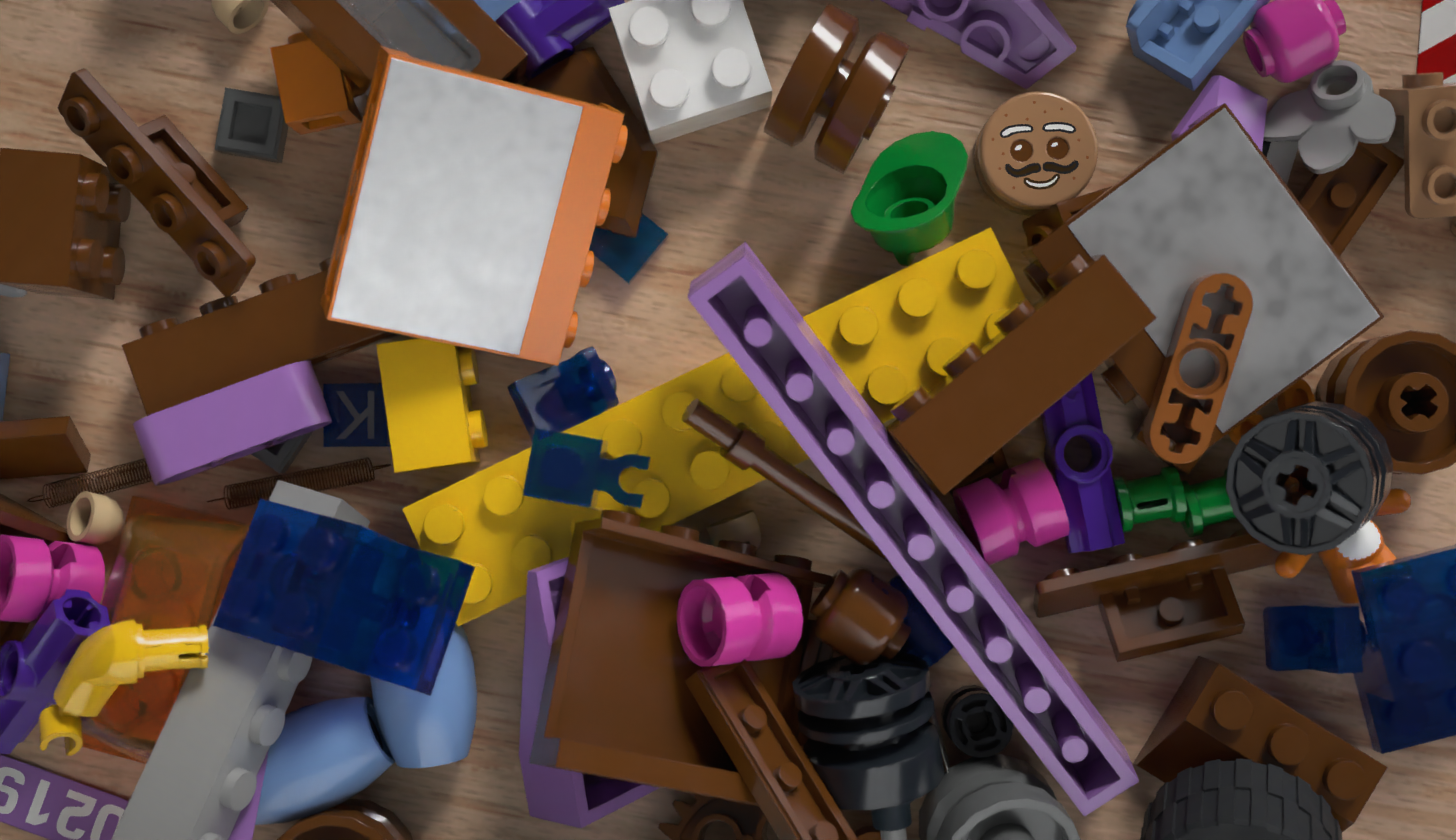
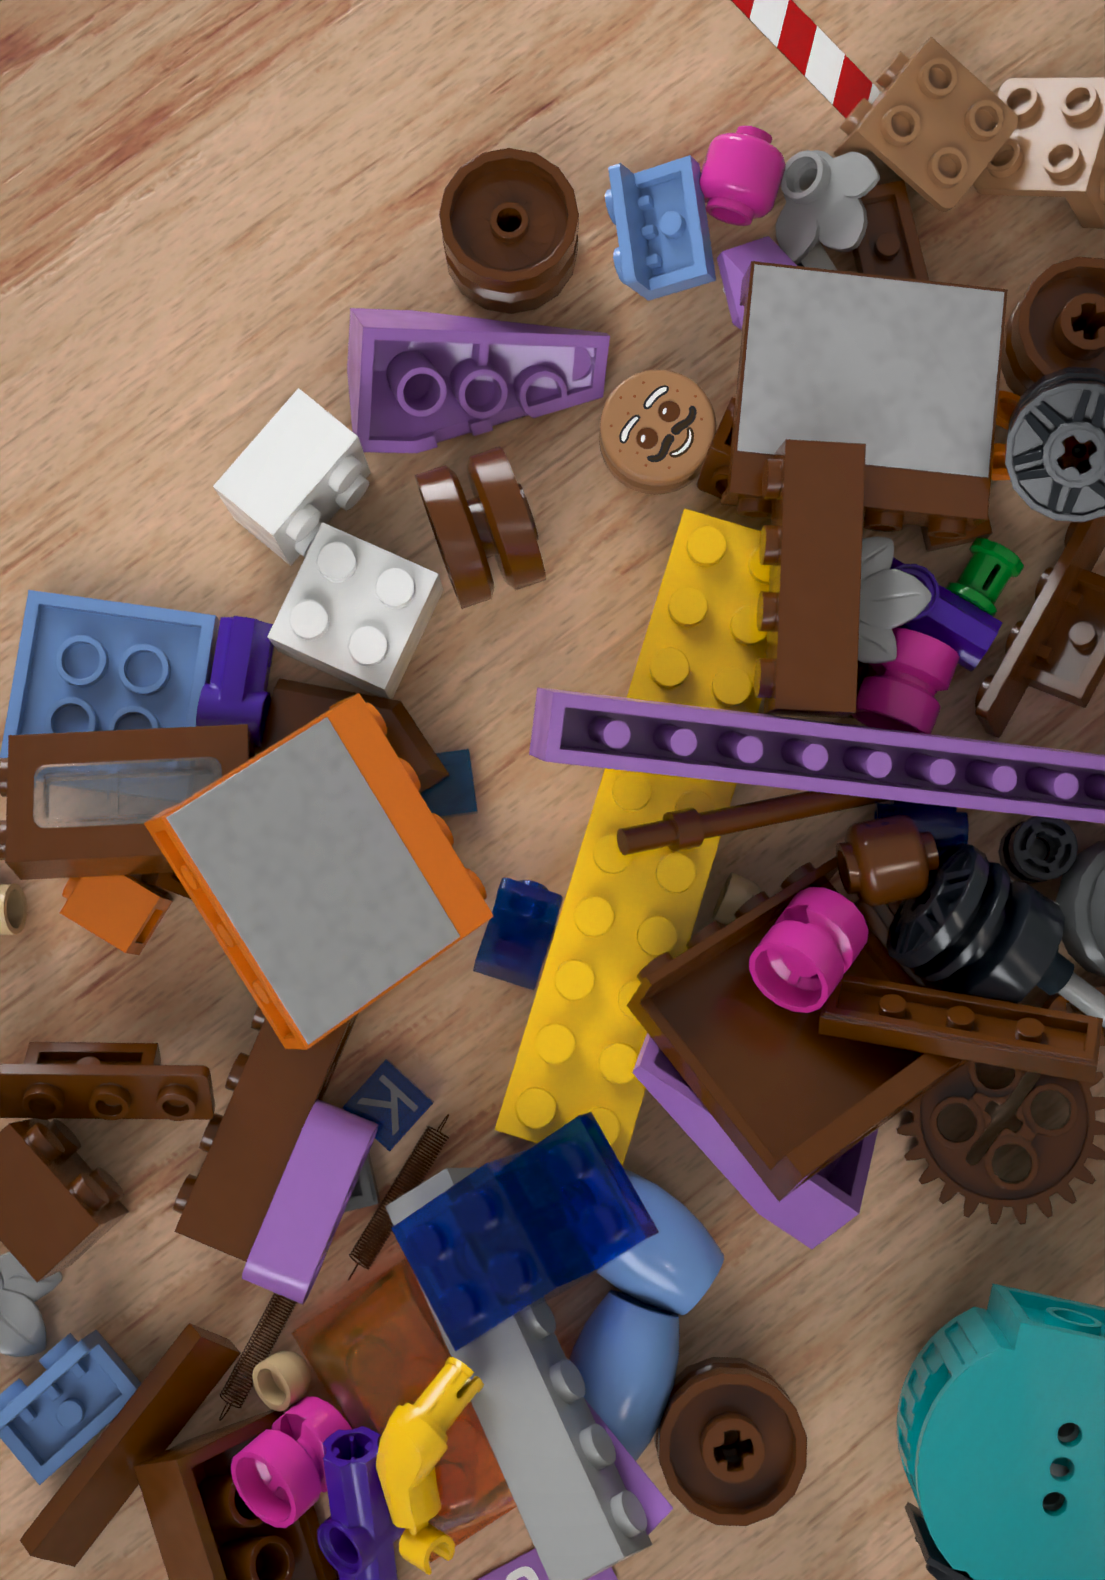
camera: 50 degrees left, 5 degrees down
(252, 126) = (99, 983): dark grey tile -> none
(430, 404) = (432, 1039): yellow brick -> none
(575, 470) = (588, 968): clear blue brick -> none
(912, 194) = (605, 544): green piece -> none
(1056, 438) = (886, 601): none -> light grey plate
(1206, 504) = (1028, 535): green bush -> none
(1224, 356) = (968, 481): dark orange beam -> none

